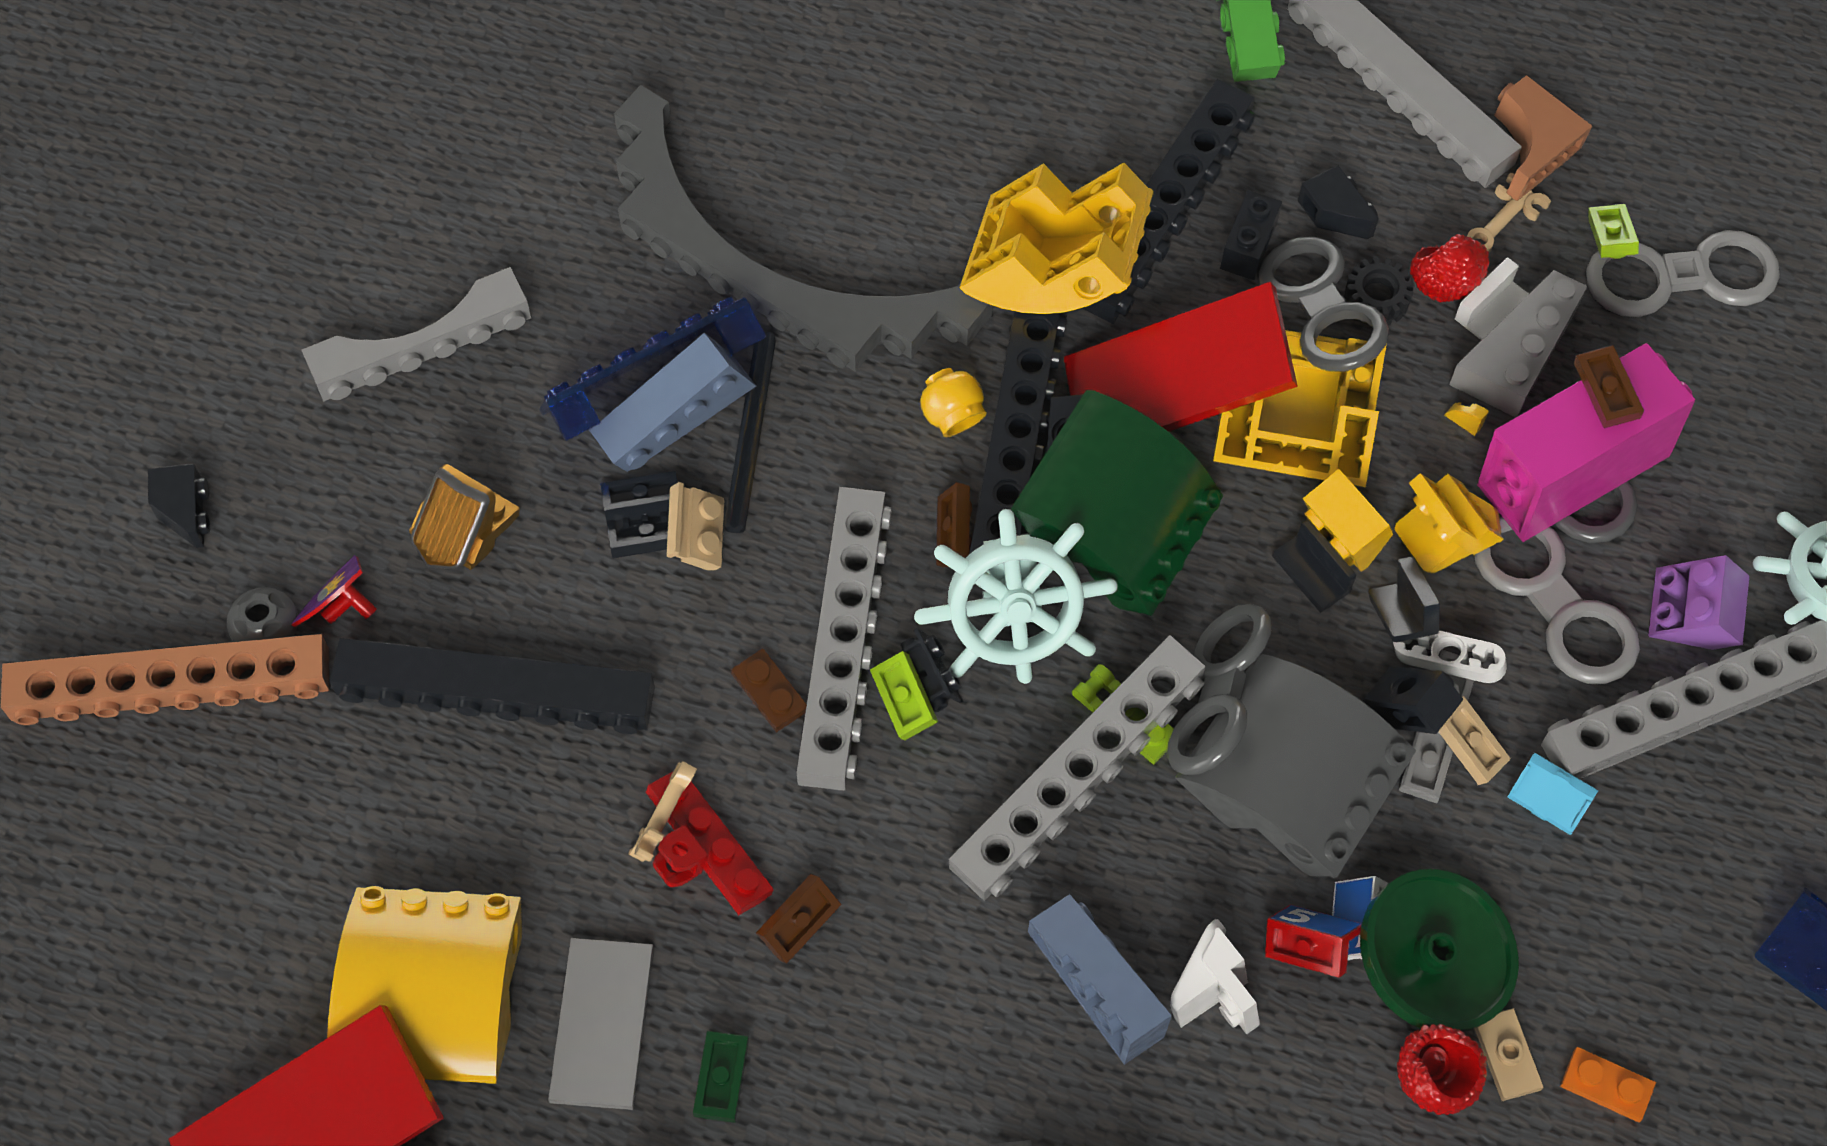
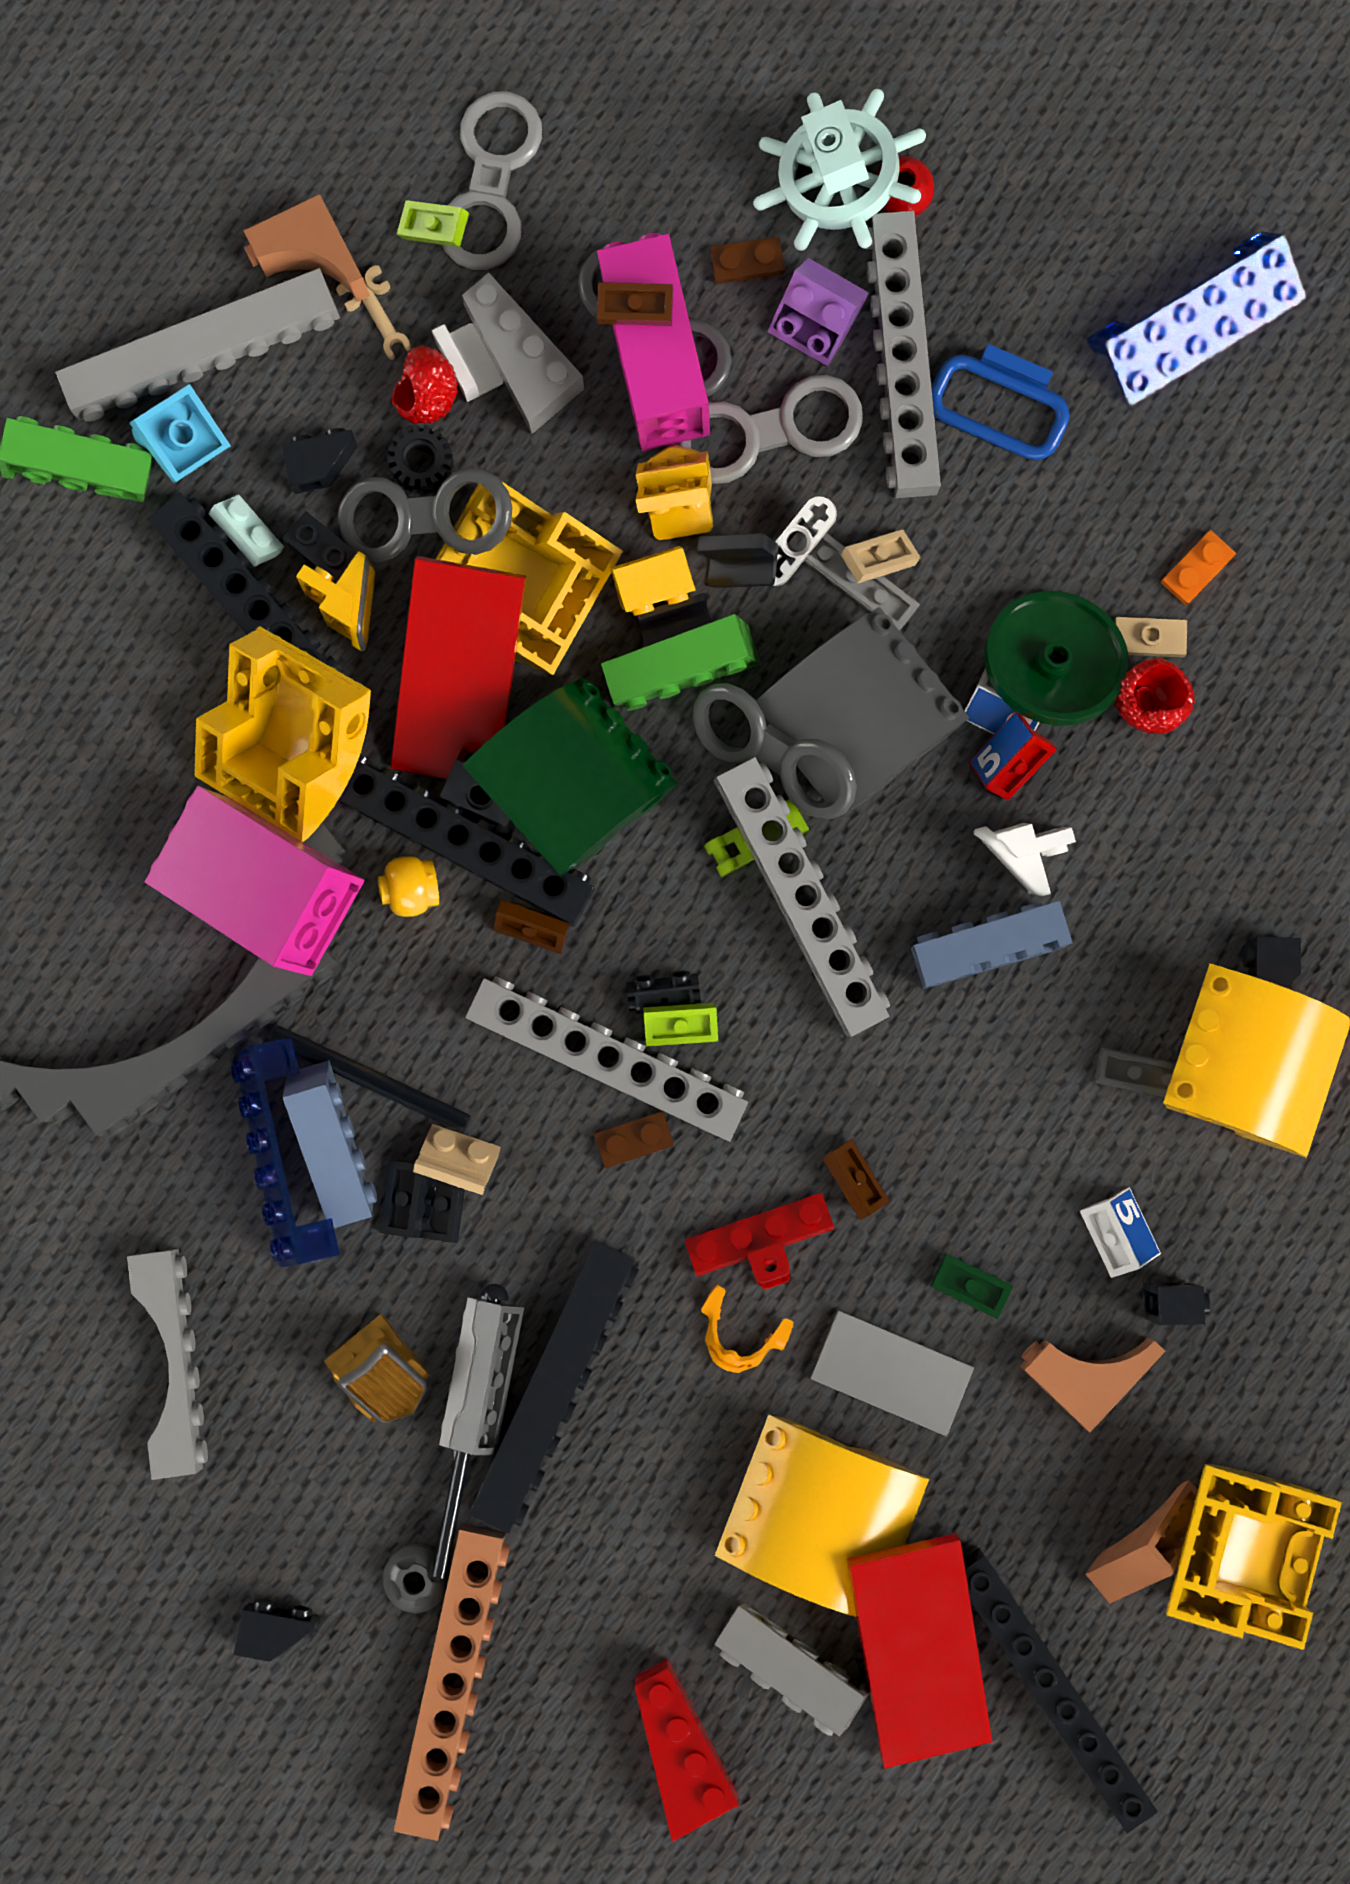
camera: 70 degrees left, 20 degrees up
(140, 922) = (684, 1759): none -> red wedge
(252, 1008) = (791, 1670): none -> light grey wedge
(349, 596) = (416, 1505): red shield -> none
(460, 613) = (476, 1397): none -> piece
(568, 845) = (729, 1359): none -> light orange helmet
(651, 835) = (747, 1288): tan bar -> none
(904, 256) = (254, 882): none -> dark pink container
(1013, 594) = (623, 896): light aqua piece -> none
(1213, 263) = (346, 603): none -> yellow piece
(1243, 166) = (246, 530): none -> light aqua plate
(1277, 578) = (681, 662): none -> bright green wedge
(1310, 83) = (179, 434): none -> medium azure slope
(1414, 699) = (834, 589): black brick -> none
(1467, 417) = (578, 429): yellow tile -> none
(1552, 793) = (947, 507): medium azure piece -> none
(1719, 524) = (747, 260): none -> reddish brown plate
(1726, 813) = (1011, 373): none -> blue bar

